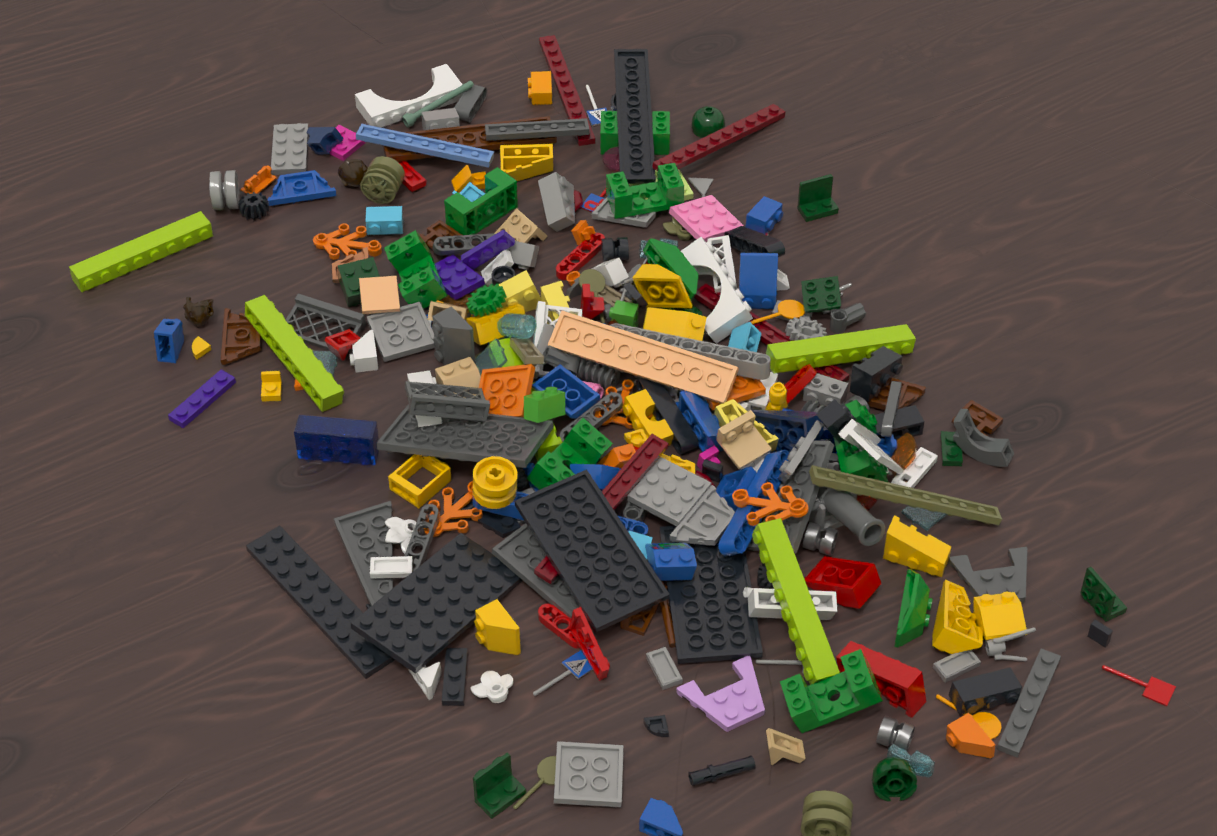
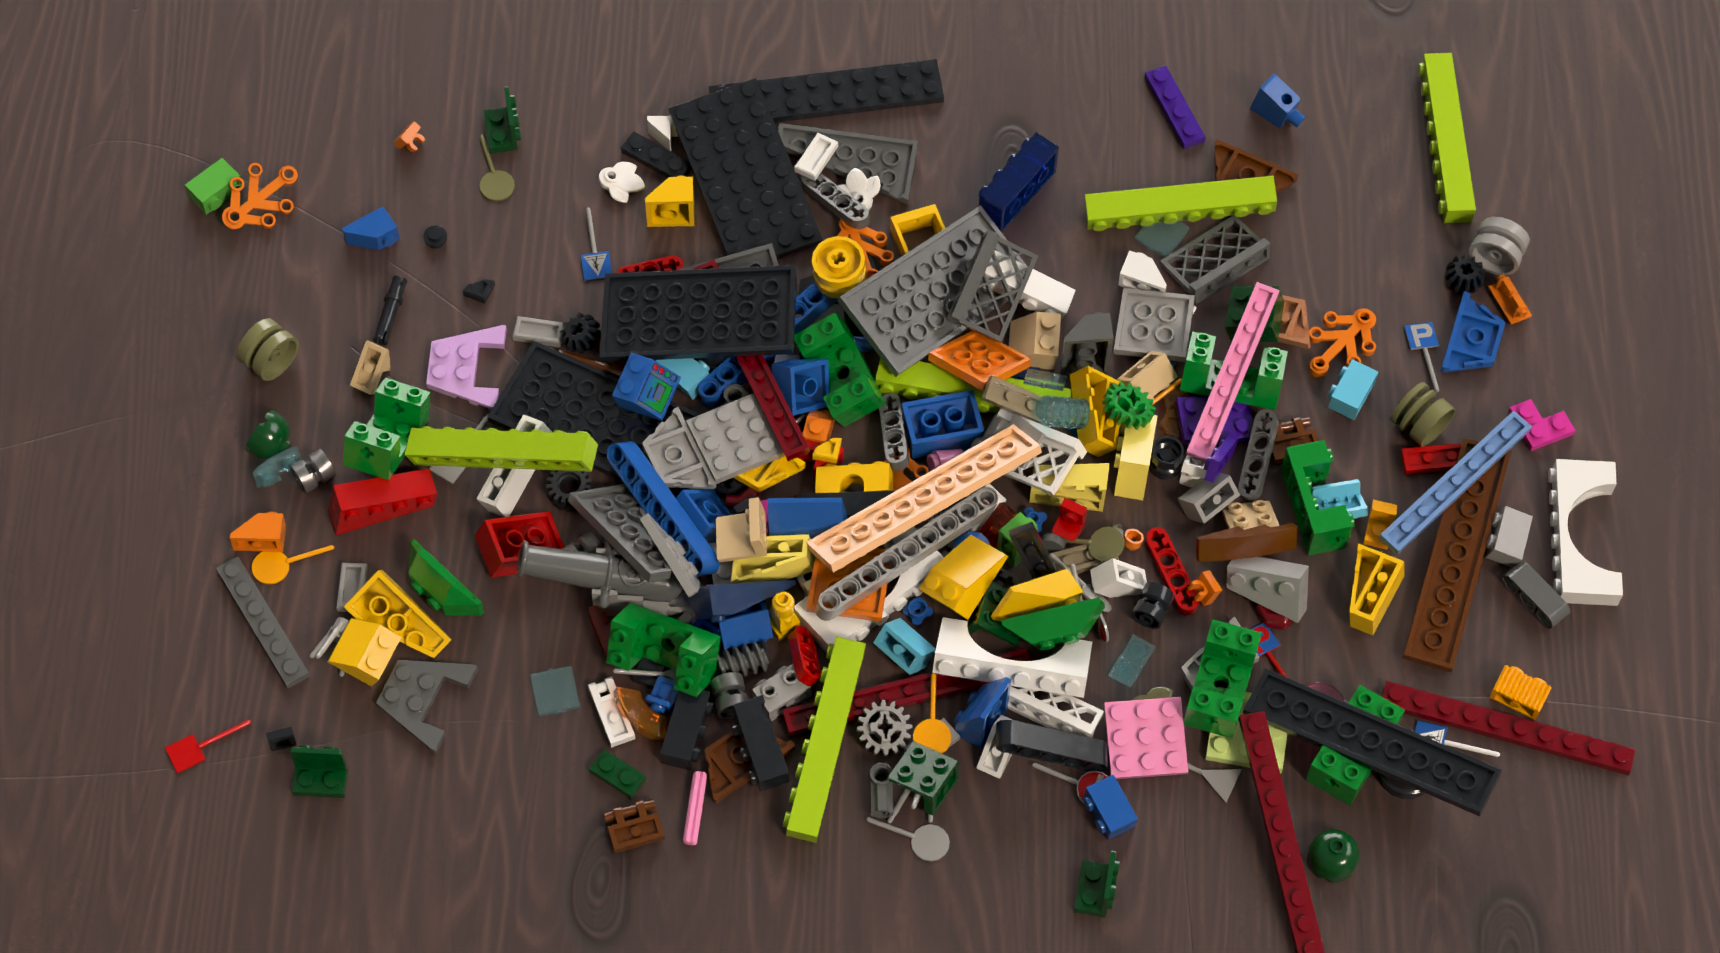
camera: 120 degrees right, 15 degrees up
(198, 312) = (1304, 151): dark brown helmet -> none
(200, 347) = (1255, 134): yellow tile -> none
(271, 386) = (1148, 171): yellow bracket -> none
(289, 149) = (1560, 362): light grey plate -> none
(316, 213) = (1423, 337): none -> piece
(323, 139) = (1546, 391): dark blue brick -> none
(341, 343) = (1162, 250): red slope -> none
(352, 172) = (1460, 396): dark brown helmet -> none
(379, 294) = (1211, 312): light nougat tile -> none
(410, 119) = (1540, 511): sand green piece -> none
(420, 261) = (1232, 372): none -> bright pink plate
(536, 129) = (1421, 628): dark grey plate -> none
(540, 217) = (1248, 543): none -> reddish brown slope
(544, 405) = (922, 373): bright green brick -> none
(586, 640) = (594, 268): red wing -> none
(588, 774) = (466, 202): light grey plate -> none
(633, 780) = (435, 236): none -> black plate
(649, 632) = (585, 340): none -> black gear
(796, 507) = (631, 499): orange plant -> none
(835, 418) = (681, 609): black brick -> none
(856, 291) = (927, 842): none -> light grey piece
(867, 440) = (653, 632): white fence -> none
(891, 409) = (692, 719): dark grey beam -> none
(905, 495) = (557, 642): olive plate -> none
(914, 549) = (504, 631): yellow wedge -> none
(938, 399) = (695, 808): none -> bright pink axle
(979, 446) = (594, 797): dark grey arch -> none
(985, 691) = (297, 581): black brick -> none

